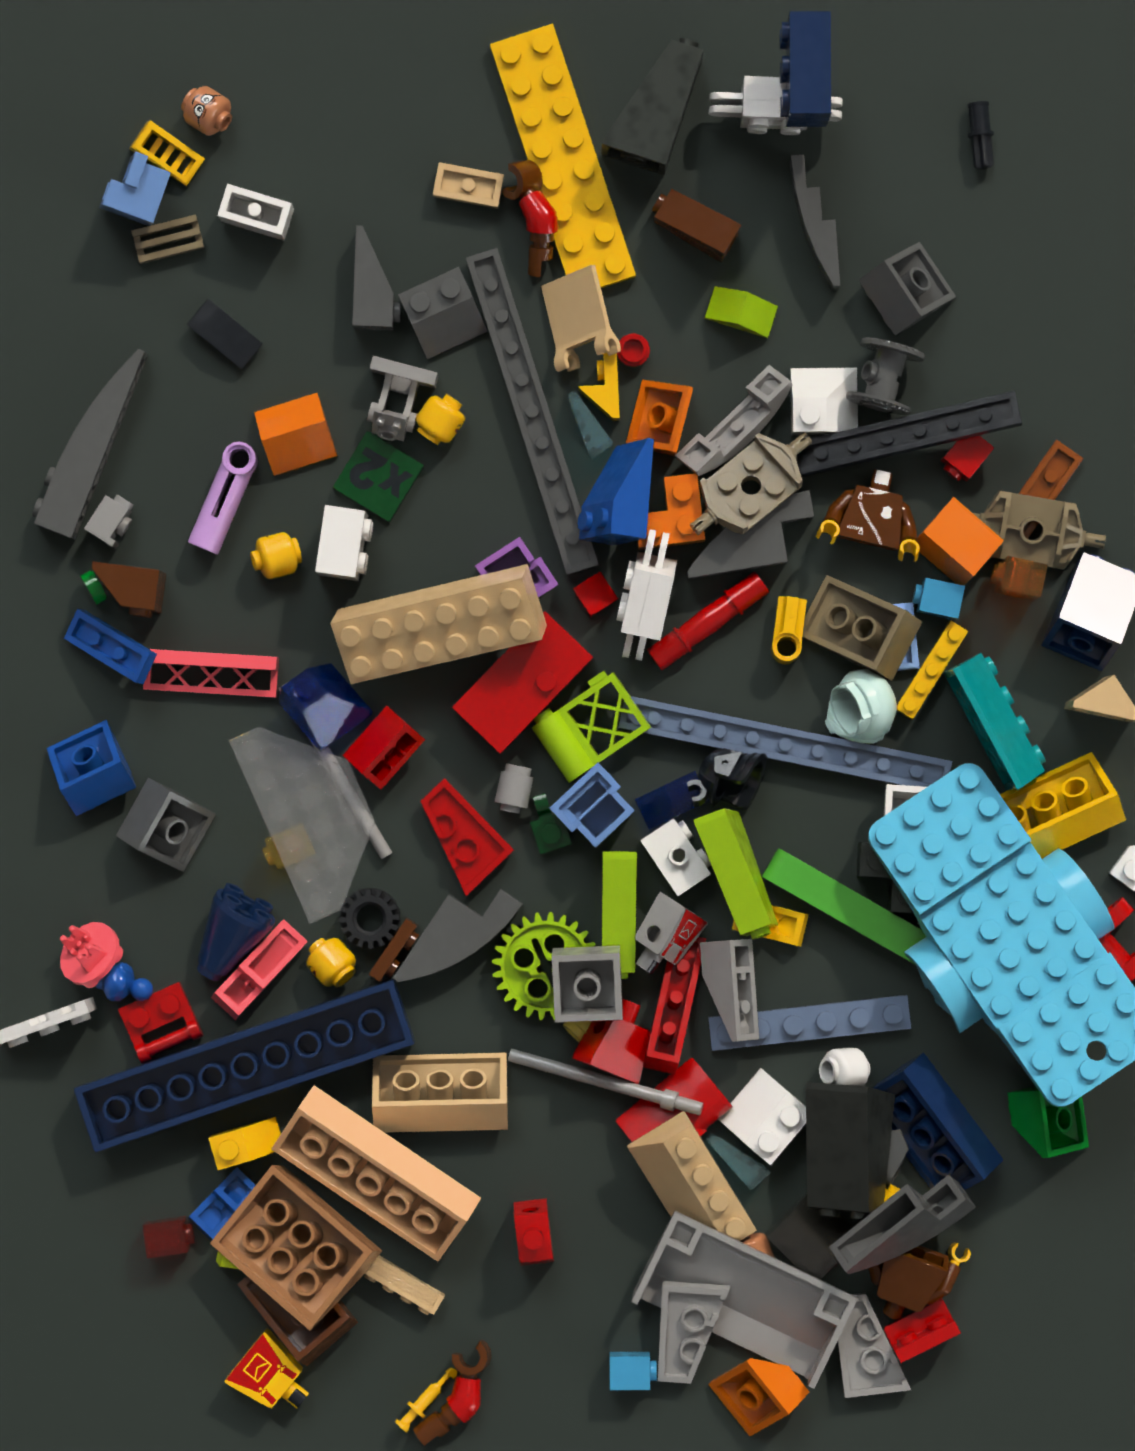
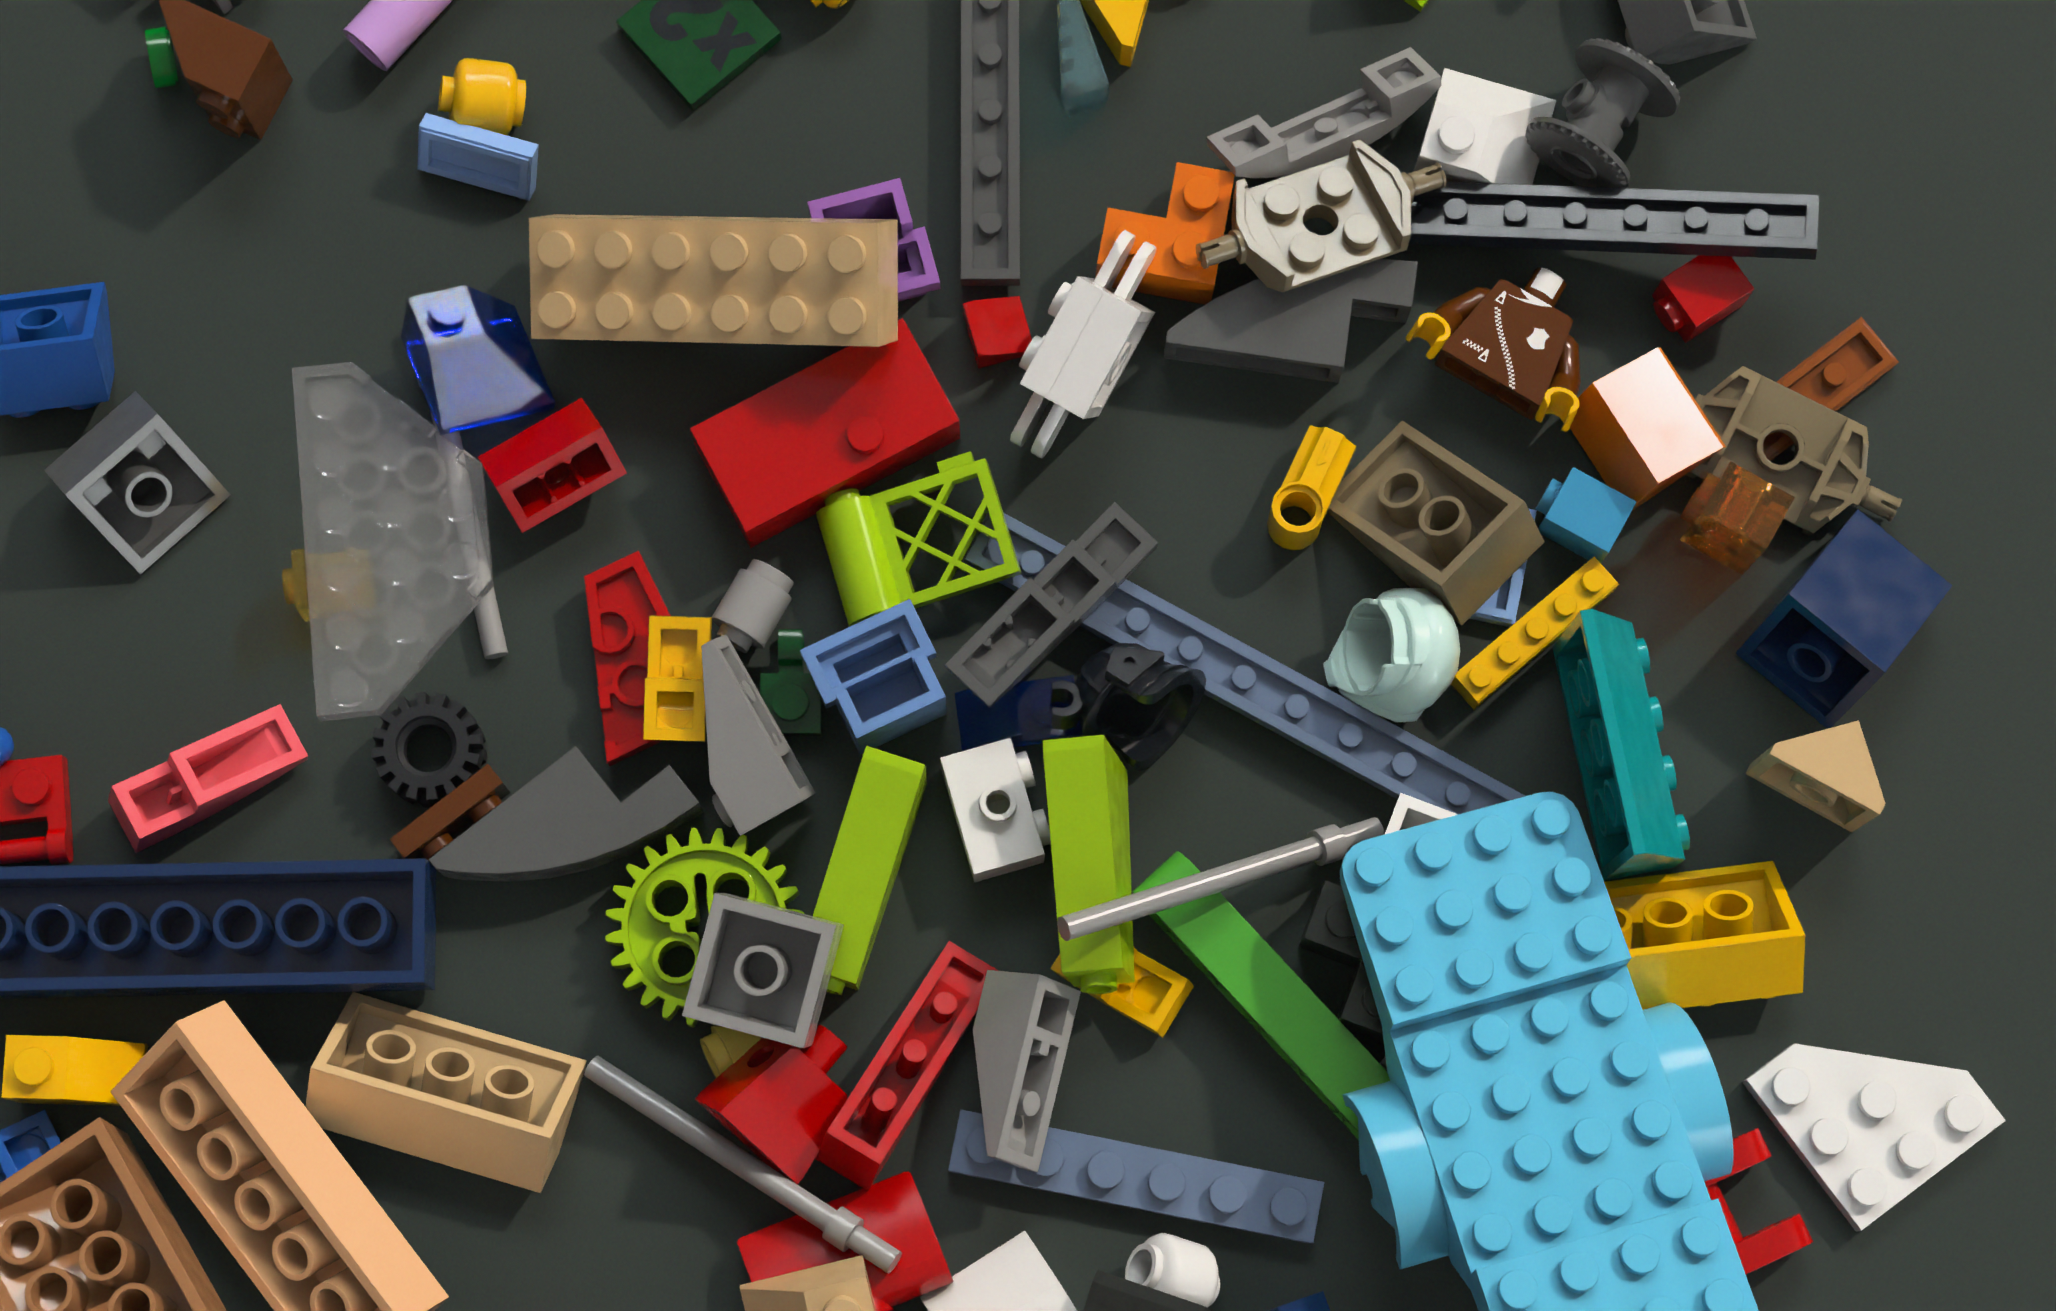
camera: 10 degrees right, 10 degrees down
(110, 646) = (150, 154): blue plate -> none
(217, 660) = (310, 233): coral fence -> none
(232, 930) = (182, 693): dark blue cone -> none
(284, 589) = (477, 156): none -> light blue tile
(331, 962) = (335, 803): yellow head -> none
(343, 543) = (599, 106): white brick -> none
(489, 841) = (675, 678): none -> yellow slope
(541, 871) = (747, 752): none -> light grey slope
(620, 497) = (1086, 183): blue slope -> none
(660, 415) = (1203, 75): orange slope -> none
(667, 932) = (936, 930): light grey torso -> none
(673, 741) = (1051, 605): none -> dark grey slope
(708, 620) = (1176, 431): red piece -> none
(852, 821) = (1320, 846): none -> light grey bar

